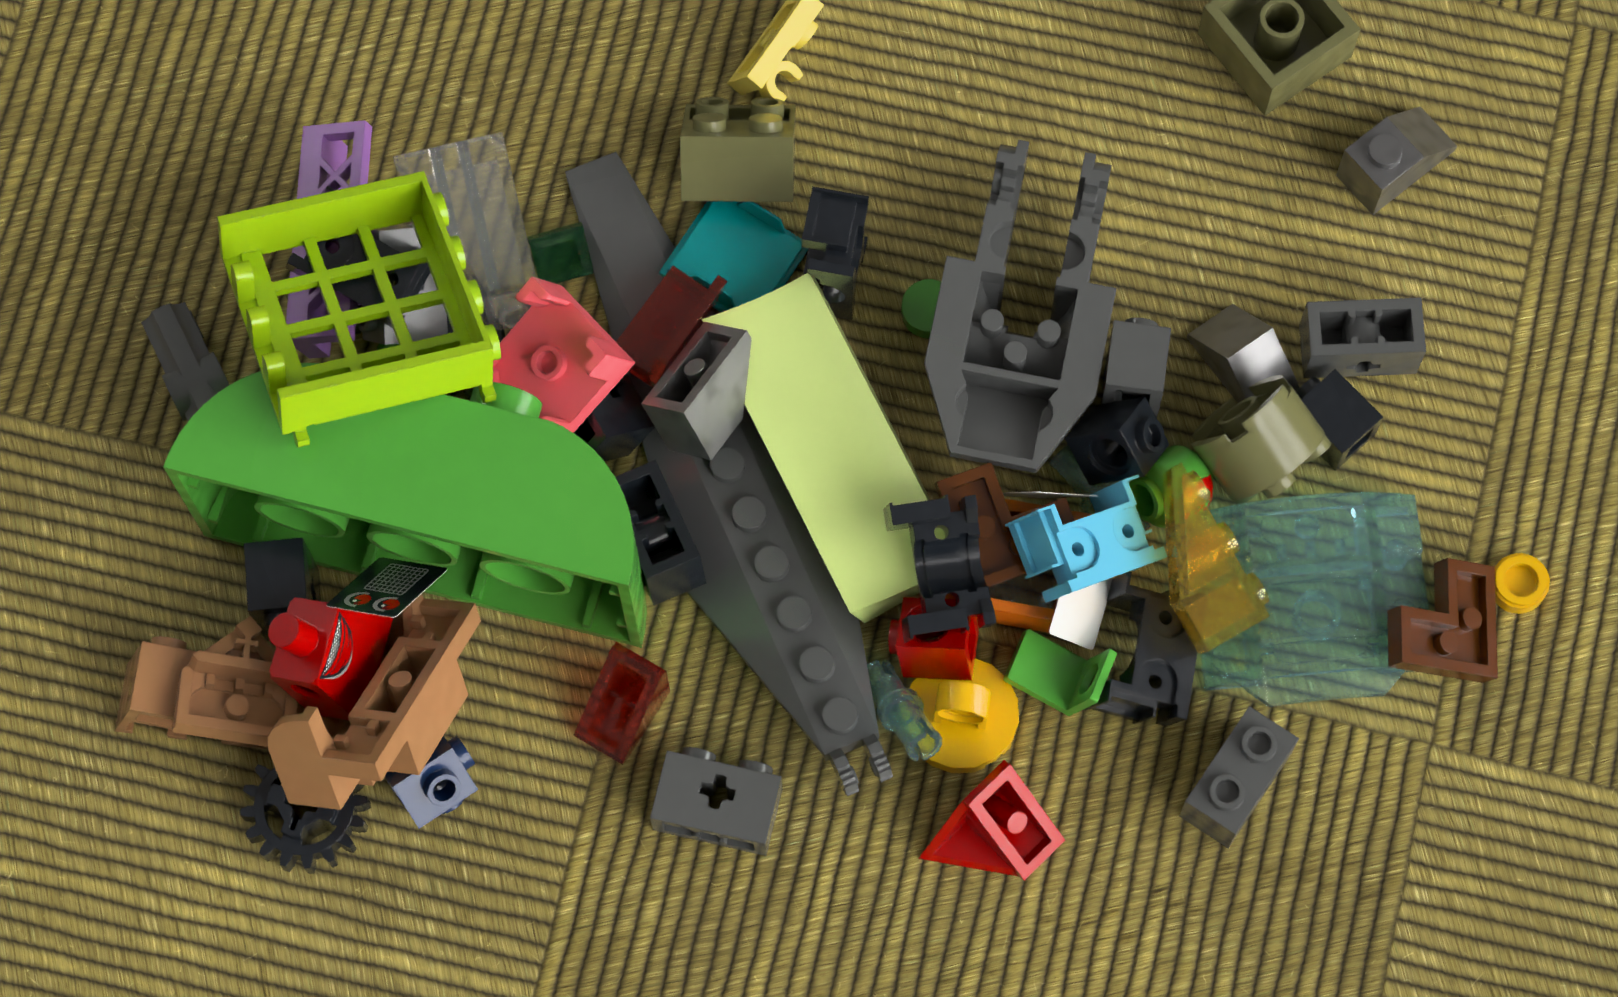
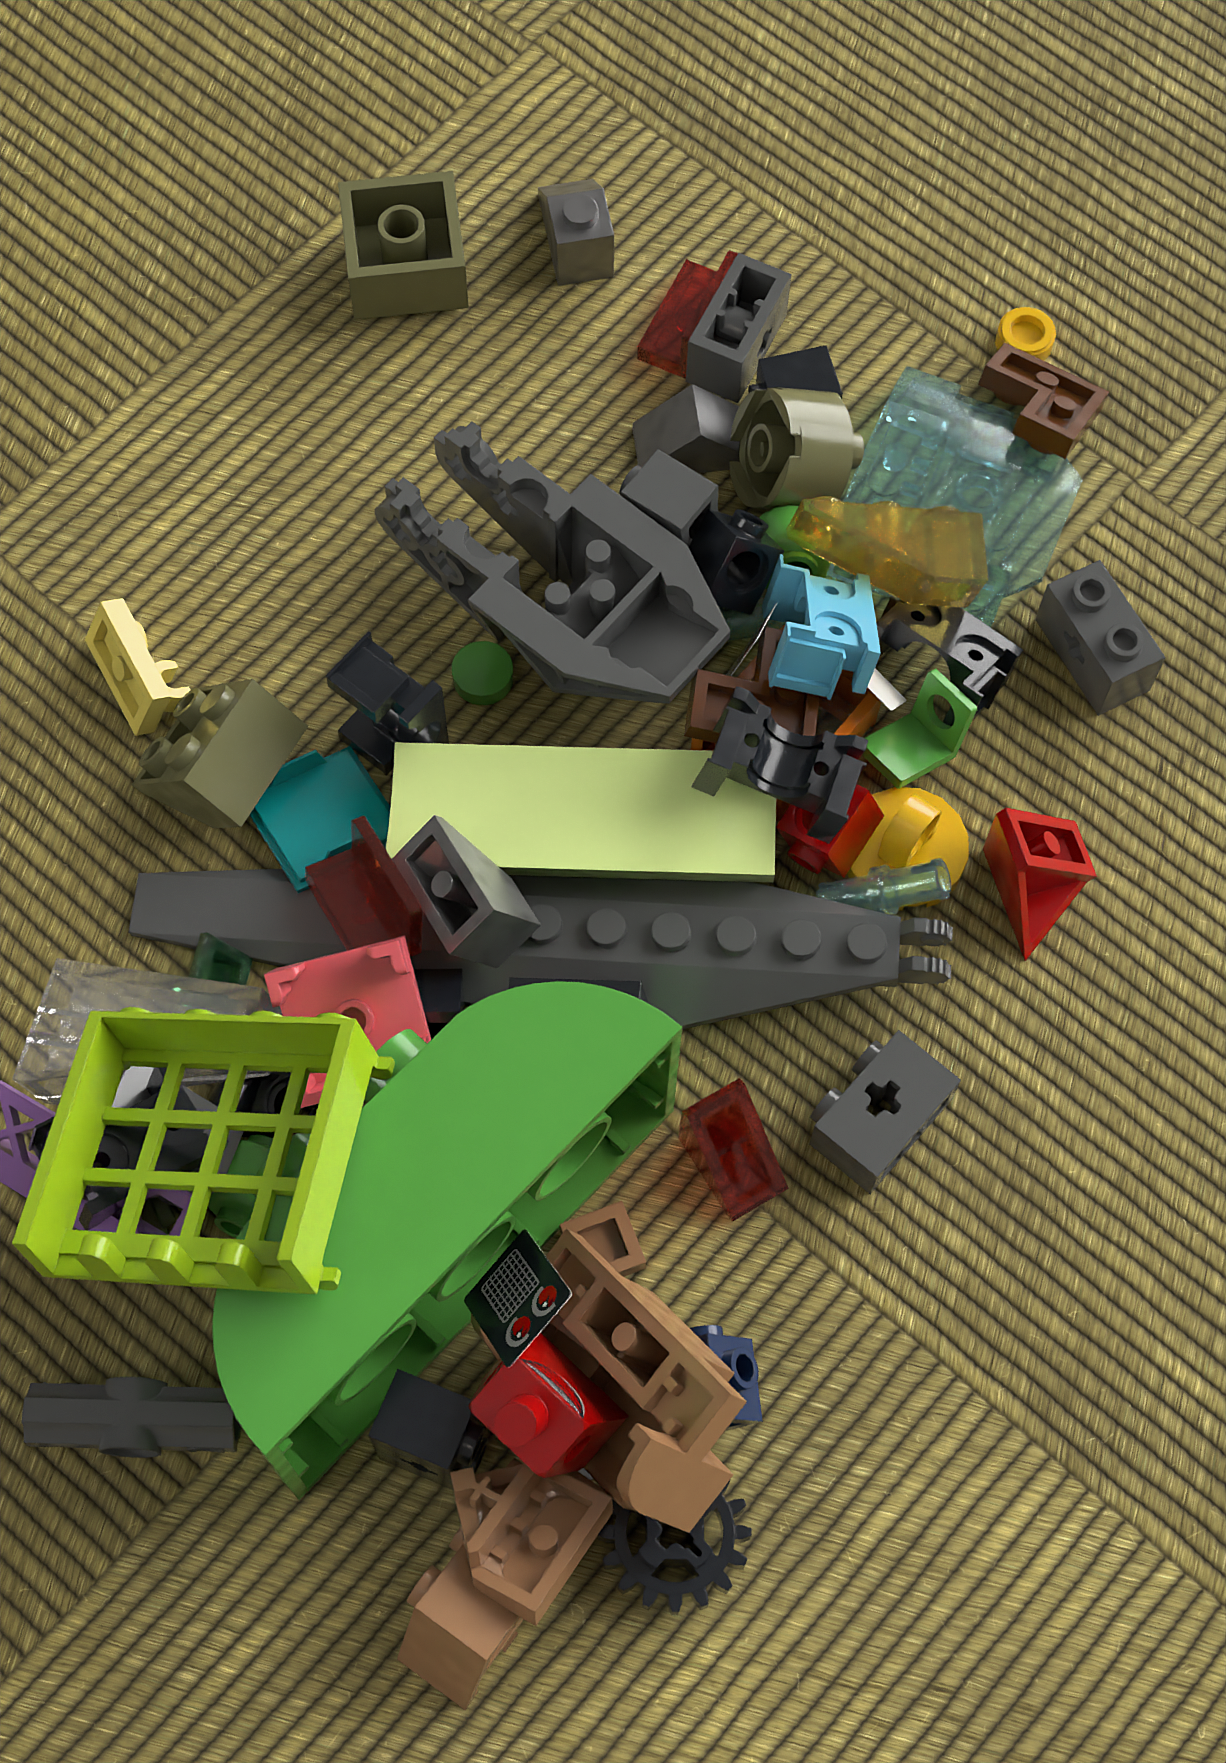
camera: 65 degrees left, 5 degrees down
(502, 648) = (611, 1236): none -> medium nougat tile
(1363, 283) = (679, 314): none -> clear red panel

